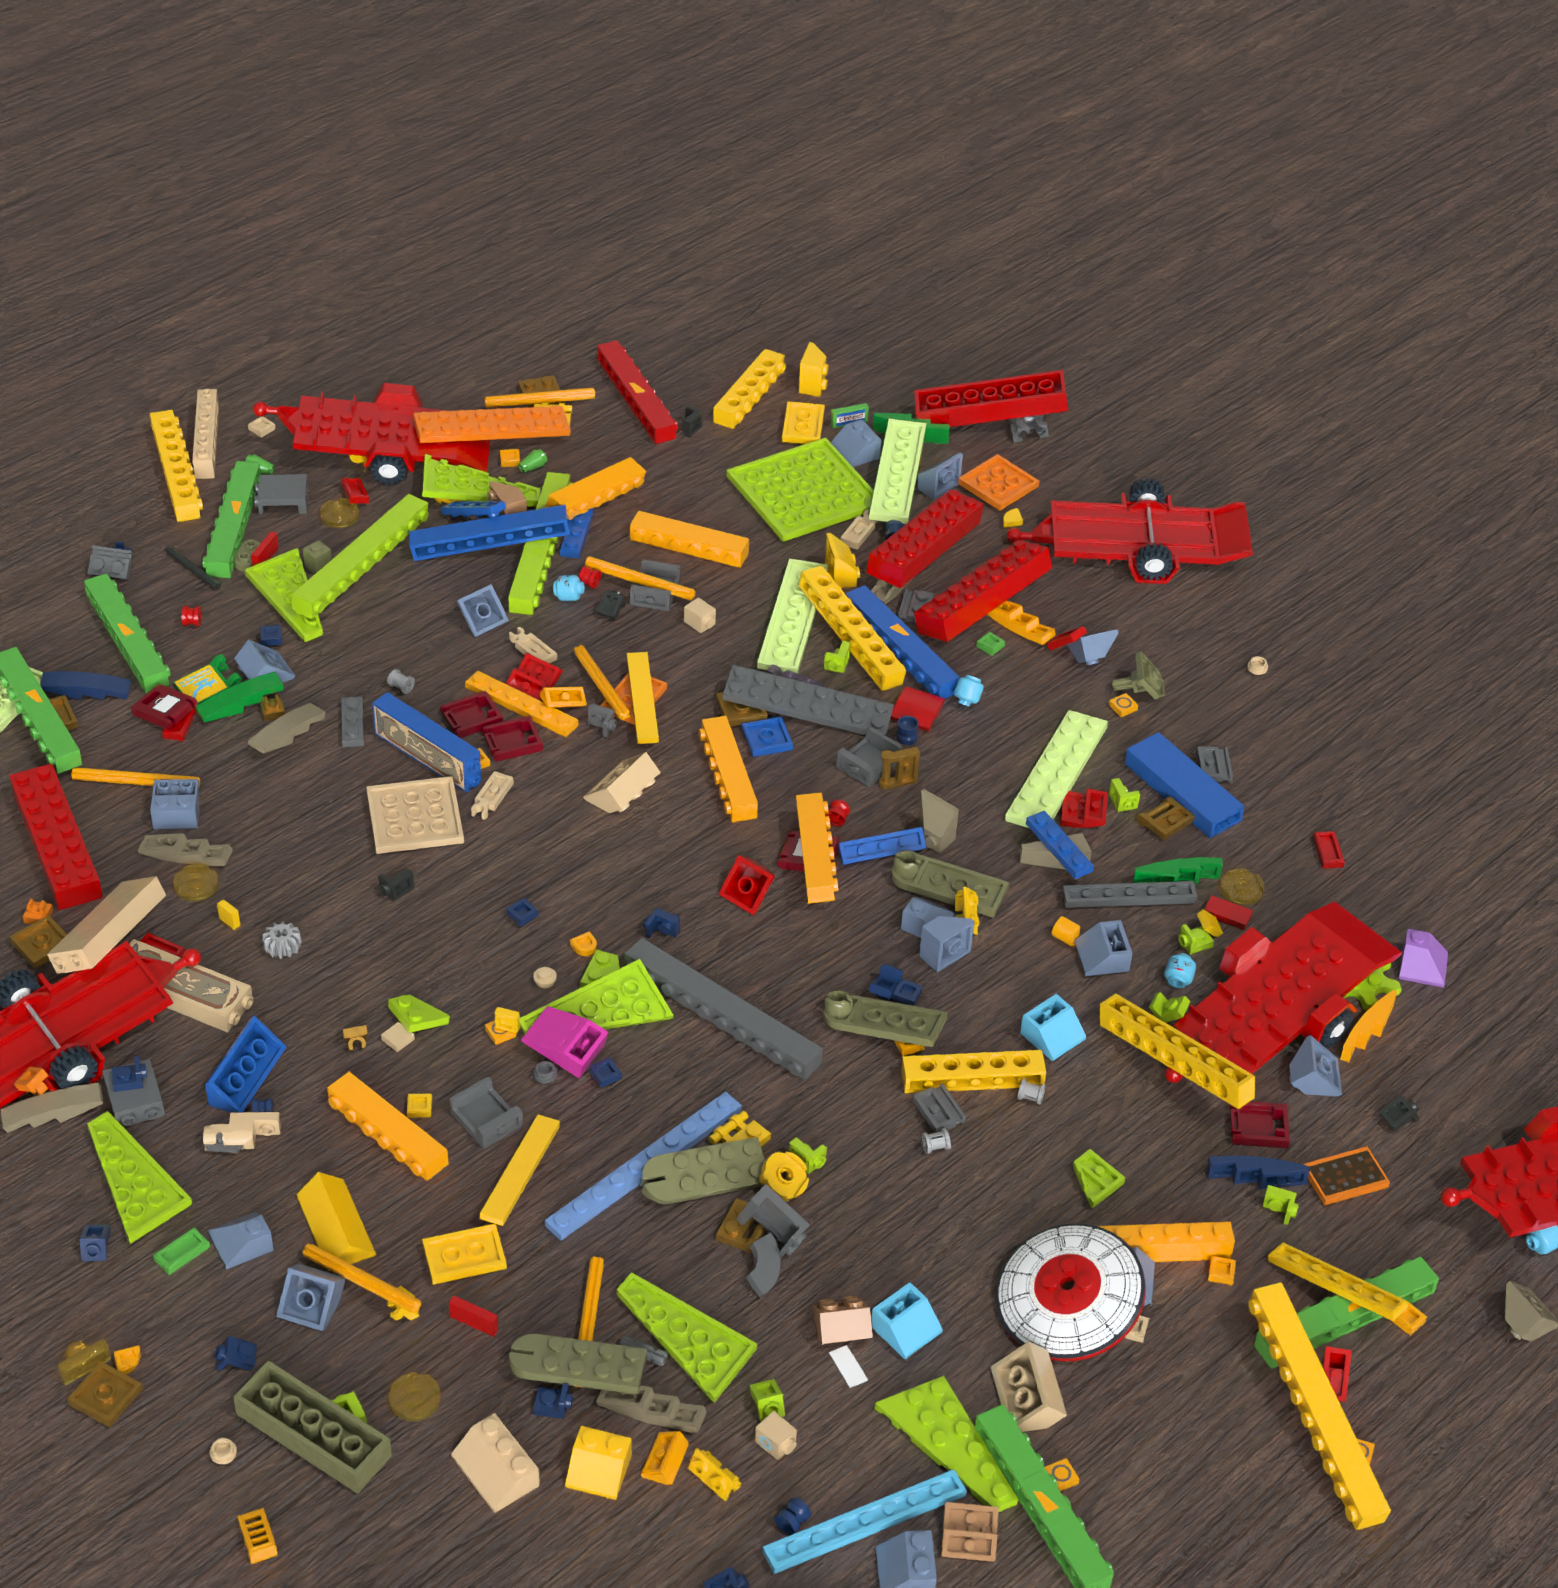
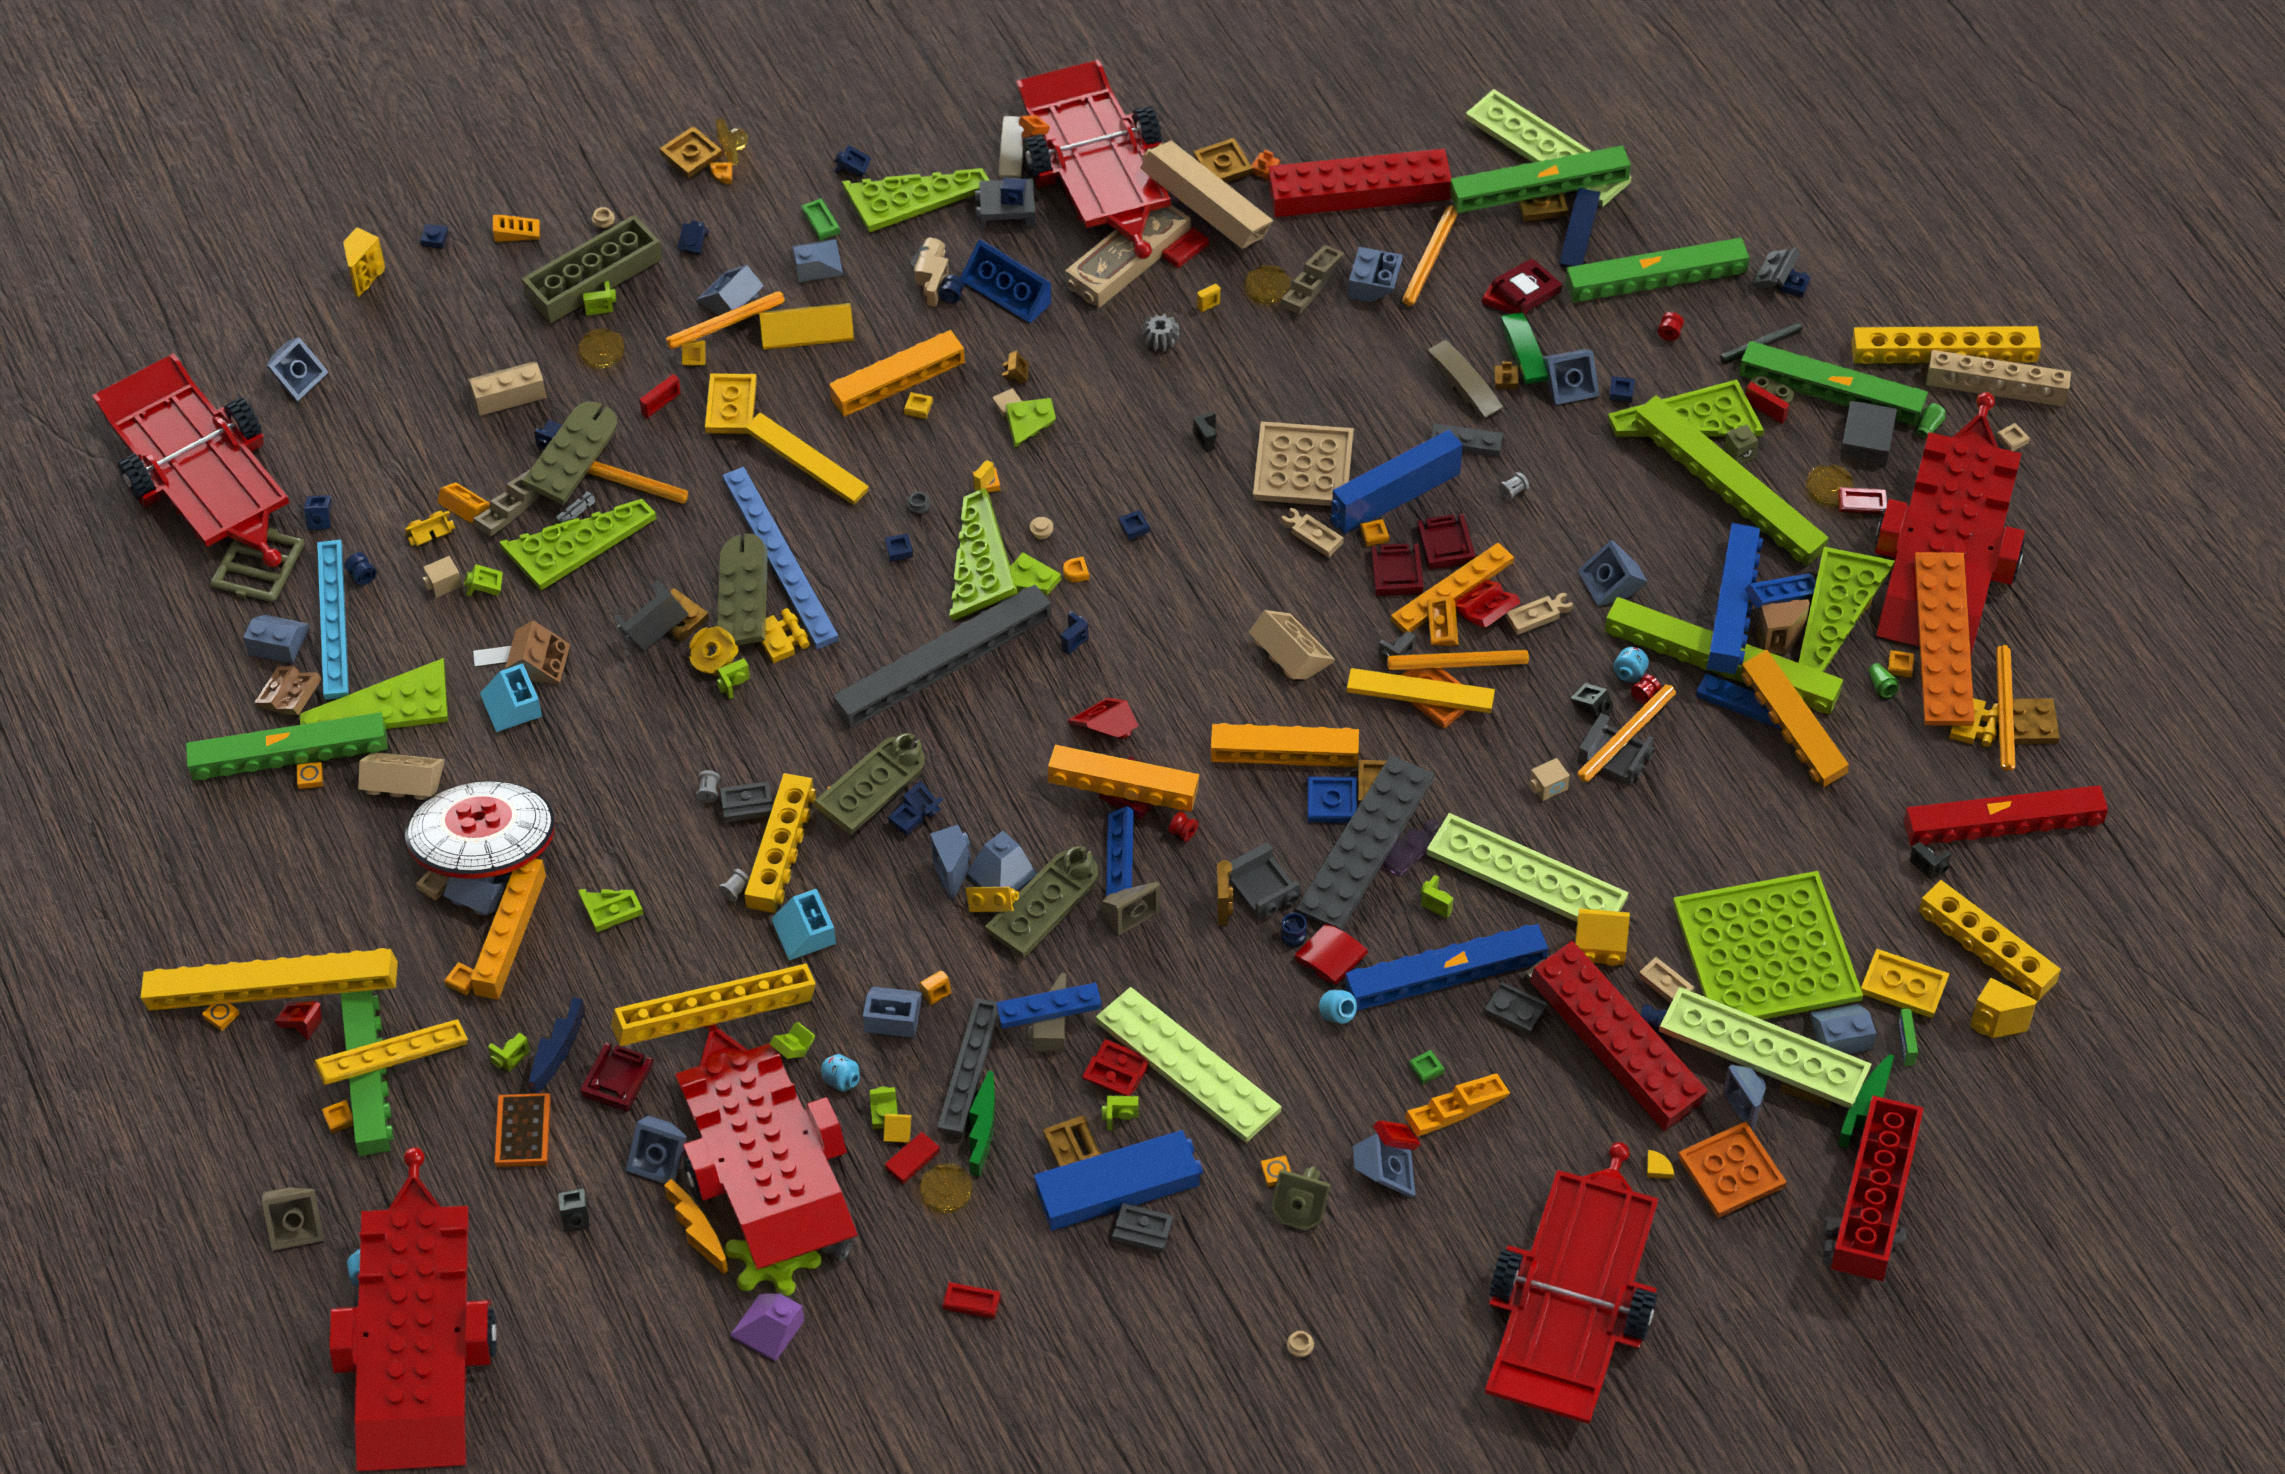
camera: 110 degrees right, 10 degrees up
(207, 680) = (1561, 326): flag -> none
(485, 1113) = (886, 449): dark grey panel -> none
(566, 1039) = (940, 516): dark pink slope -> none
(599, 1462) = (477, 452): yellow slope -> none
(689, 539) = (1692, 802): light orange brick -> none
(766, 1264) = (610, 607): dark grey tile -> none
(852, 627) = (1487, 906): yellow brick -> none
(982, 590) = (1509, 1074): red brick -> none

